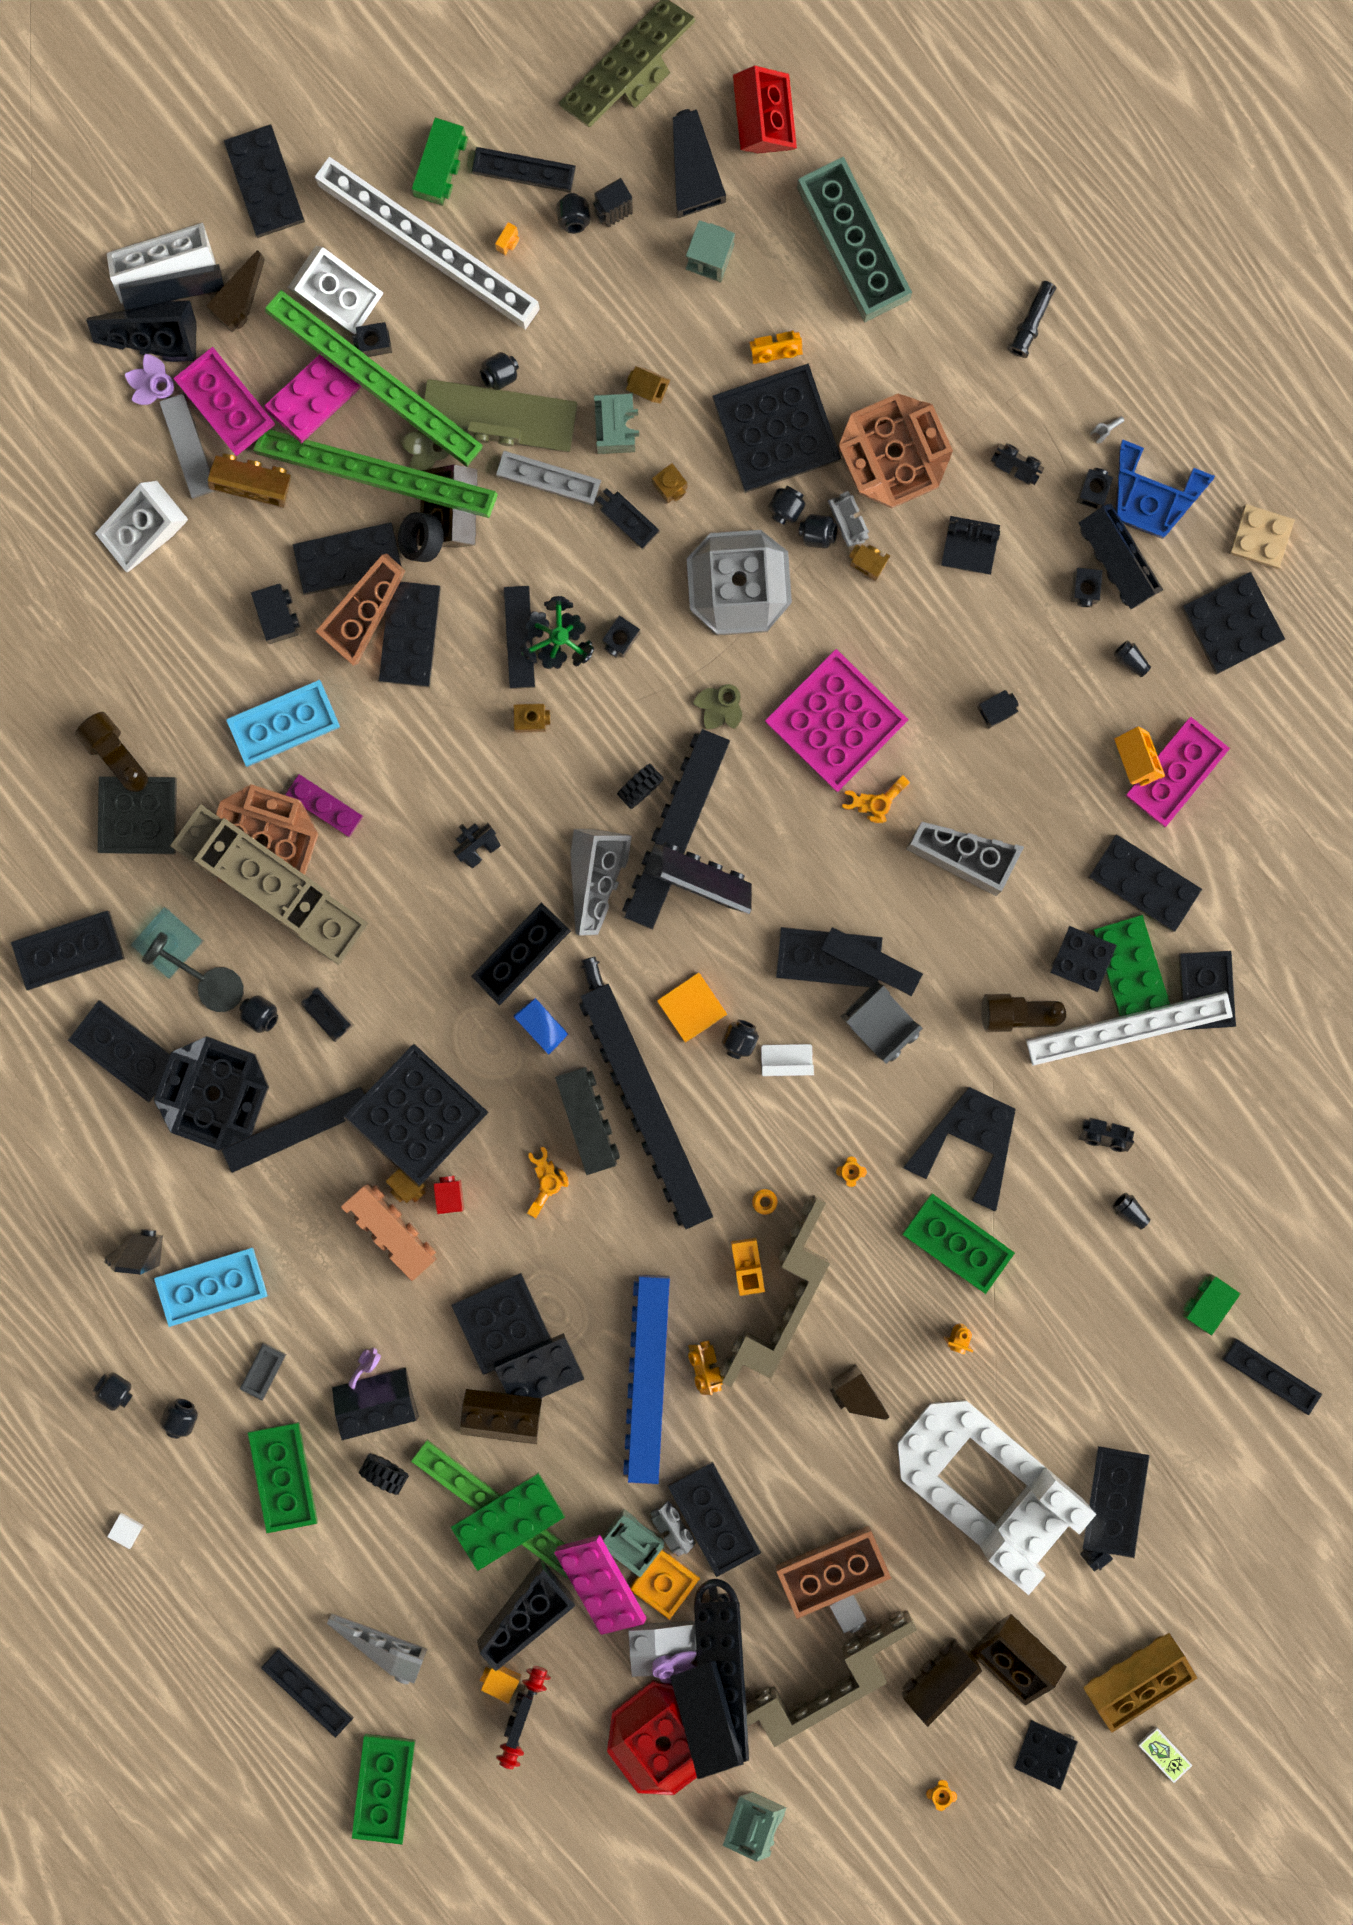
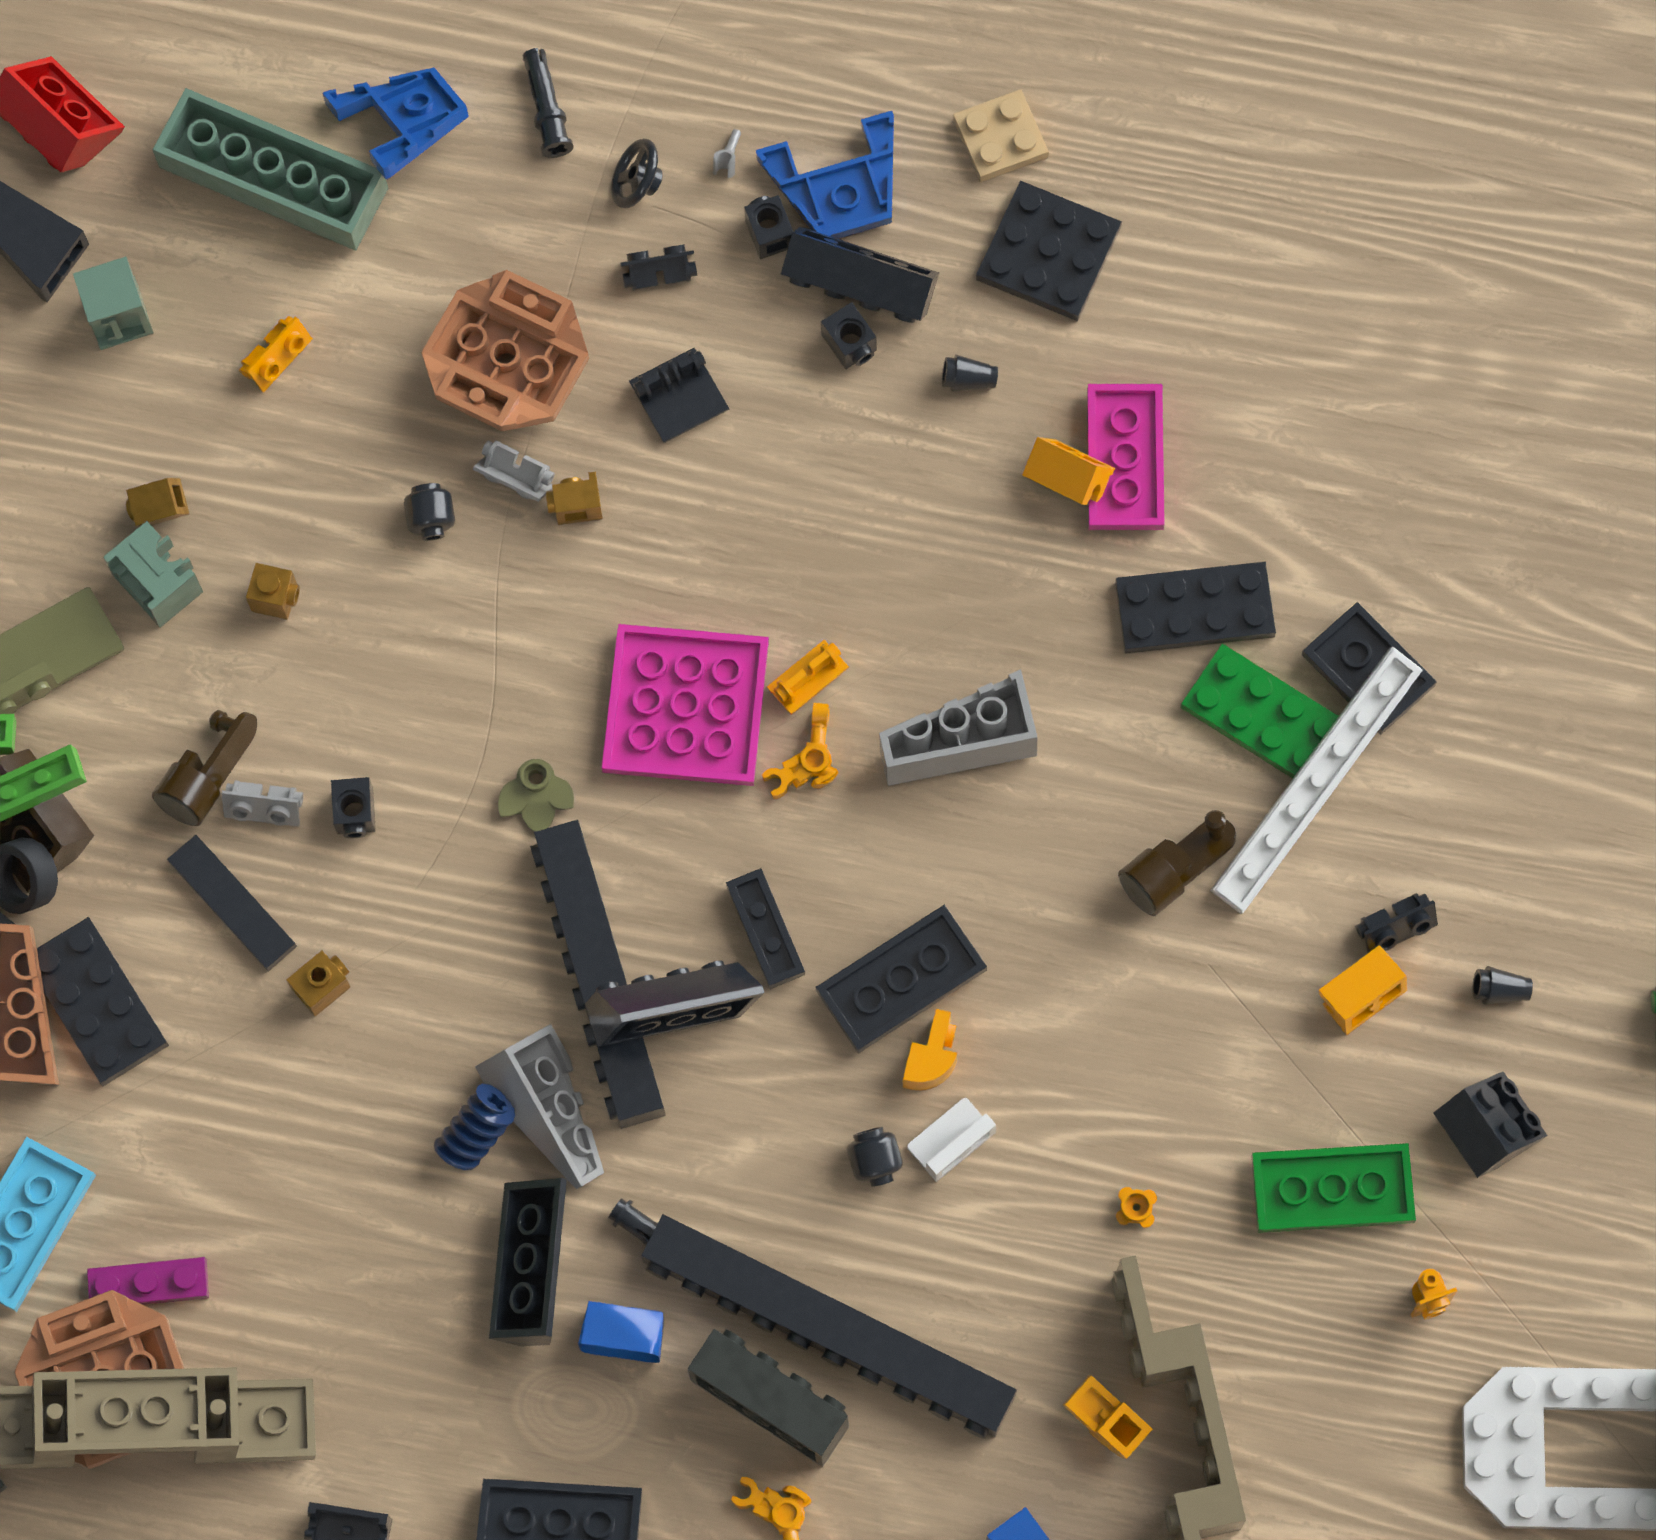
camera: 40 degrees left, 15 degrees down
(484, 836) = (374, 1163): black hips -> none
(540, 558) = (192, 789): none -> dark brown piece
(548, 478) = (122, 696): light grey plate -> none
(548, 861) = (475, 1128): none -> dark blue piece
(566, 628) = (282, 847): black plant -> none
(583, 604) = (245, 802): none -> light grey hinge
(628, 518) = (253, 669): black hinge -> none
(640, 786) = (514, 955): black tyre -> none
(692, 1007) = (787, 1167): light orange tile -> none
(735, 608) = (453, 674): light grey piece -> none
(764, 1209) = (1063, 1314): light orange plate -> none
(776, 428) = (348, 438): black plate -> none
(781, 874) = (765, 928): none -> black plate
(808, 1015) = (932, 1064): none -> light orange brick
(818, 531) = (489, 511): black head -> none
(857, 1395) = (1367, 1455): dark brown slope -> none
(871, 961) = (954, 940): black tile -> none
(881, 1023) = (1025, 1003): dark grey panel -> none
(912, 756) = (808, 676): none -> light orange hinge
(960, 268) = (415, 106): none -> blue wing
(981, 1123) = (1240, 1028): black wing -> none
(998, 708) = (861, 545): black brick -> none
(1051, 404) = (643, 176): none -> black piece
(1059, 1155) = (1363, 989): none -> light orange hinge
(1065, 1276) = (1490, 1123): none -> black slope
(1083, 959) = (1197, 743): black hinge -> none

